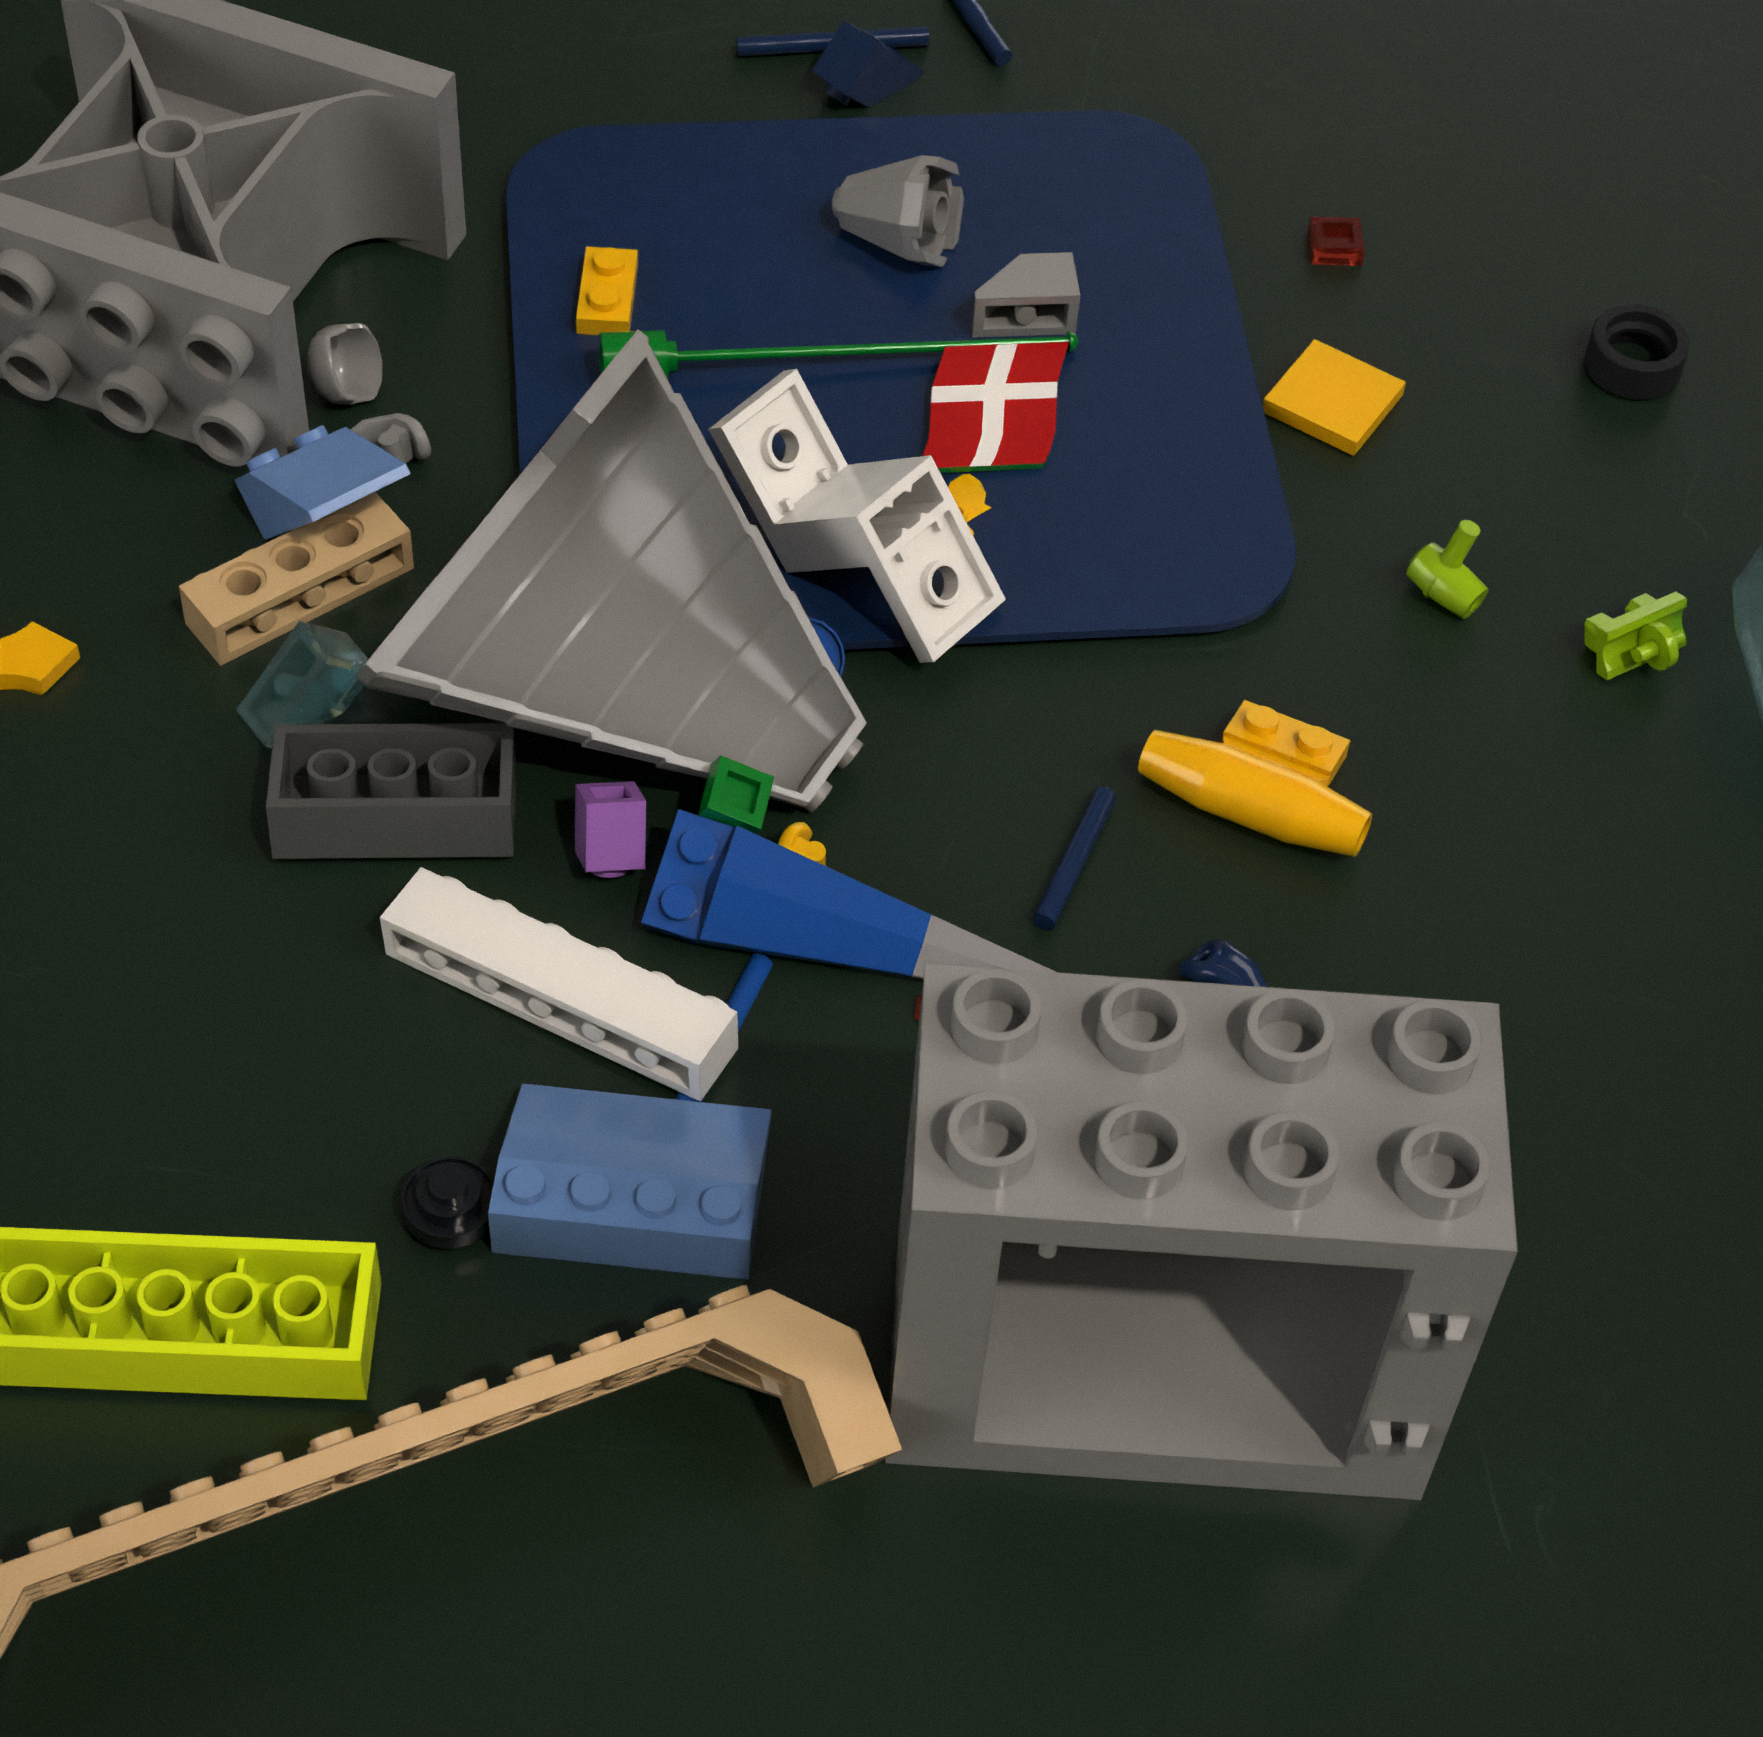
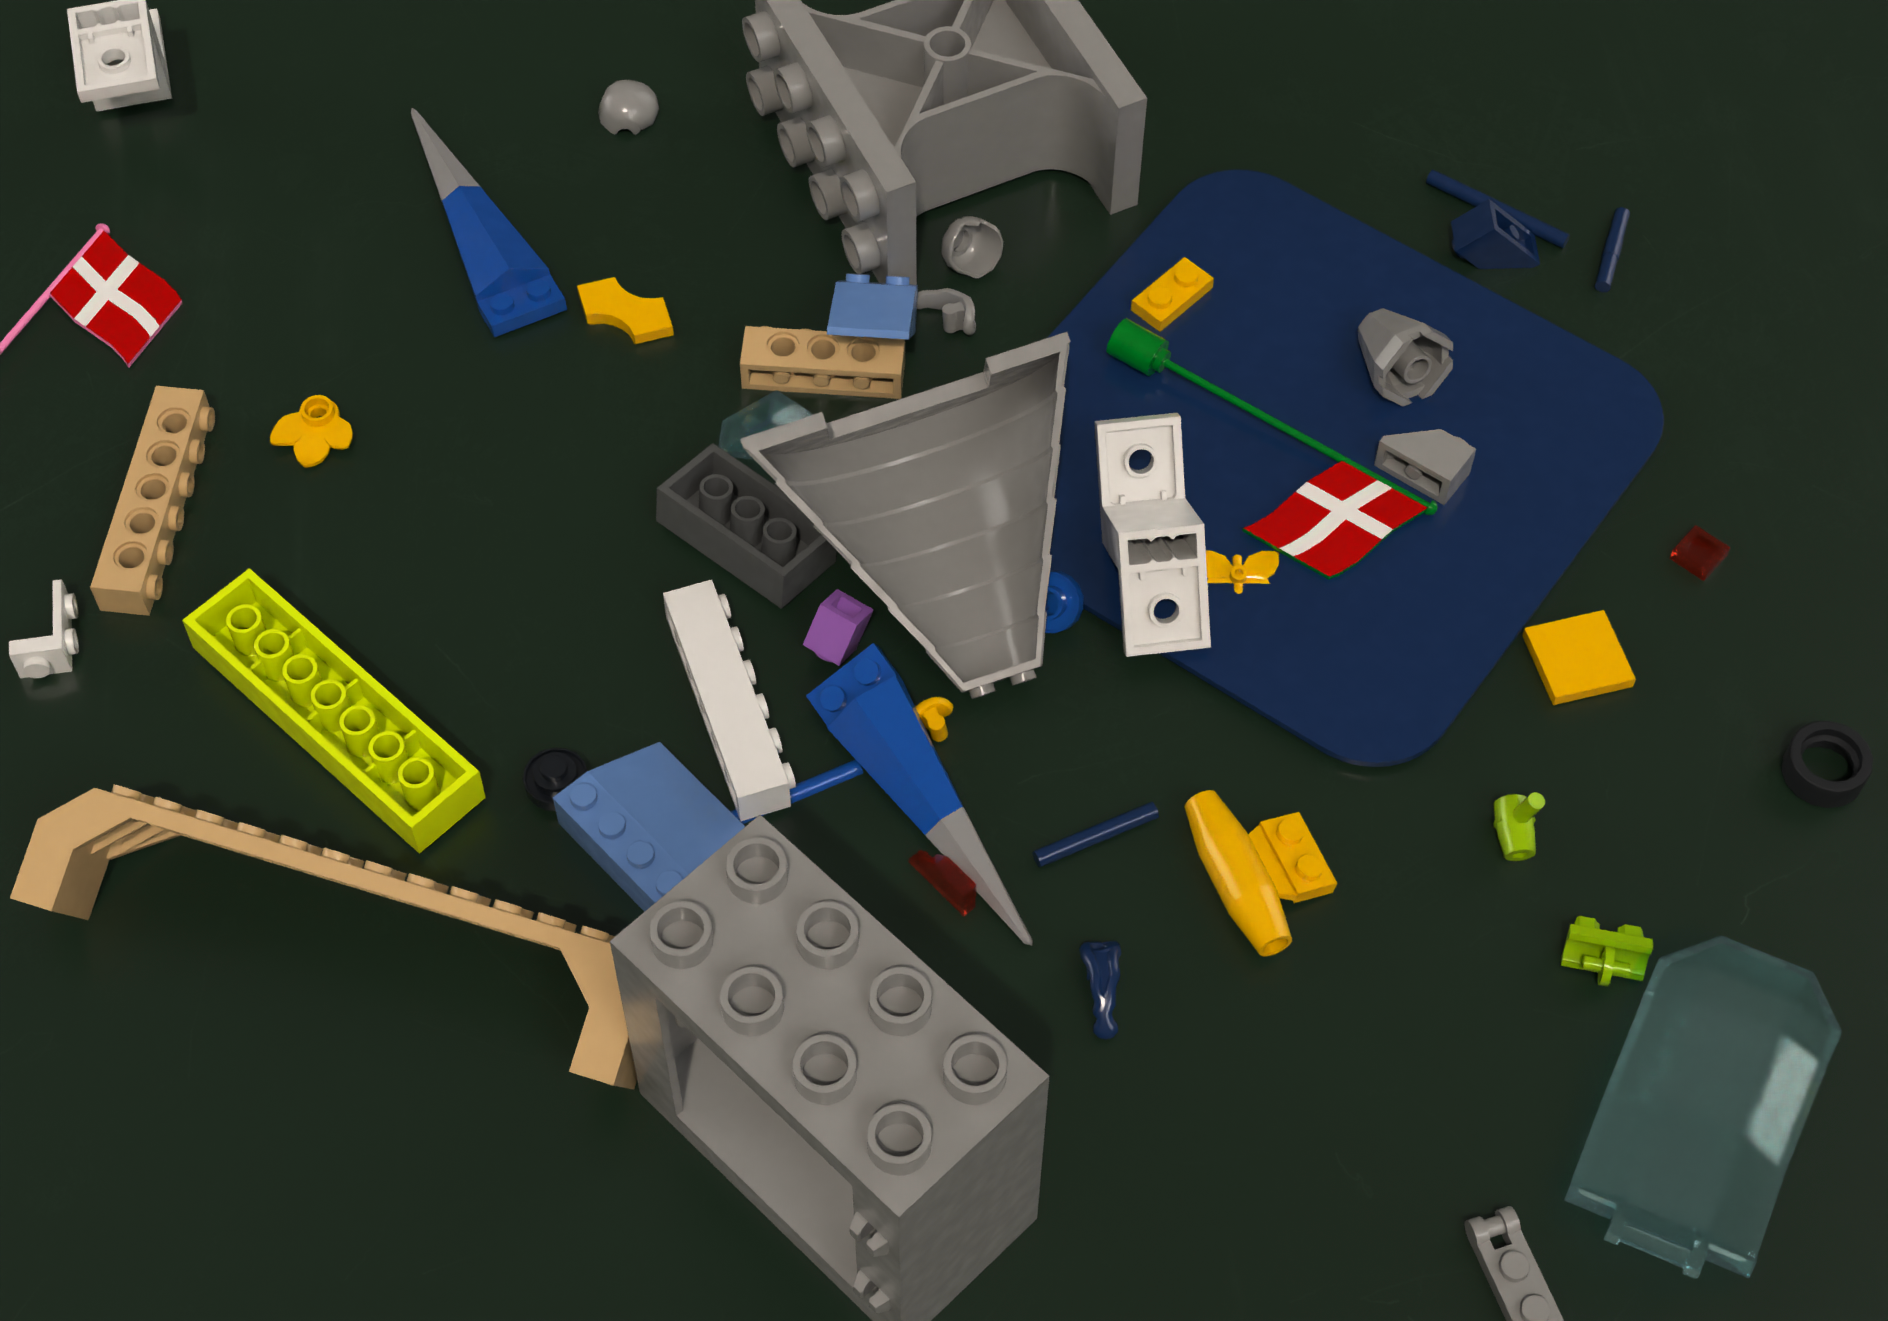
camera: 45 degrees right, 5 degrees up
(736, 794) = (912, 657): green tile -> none

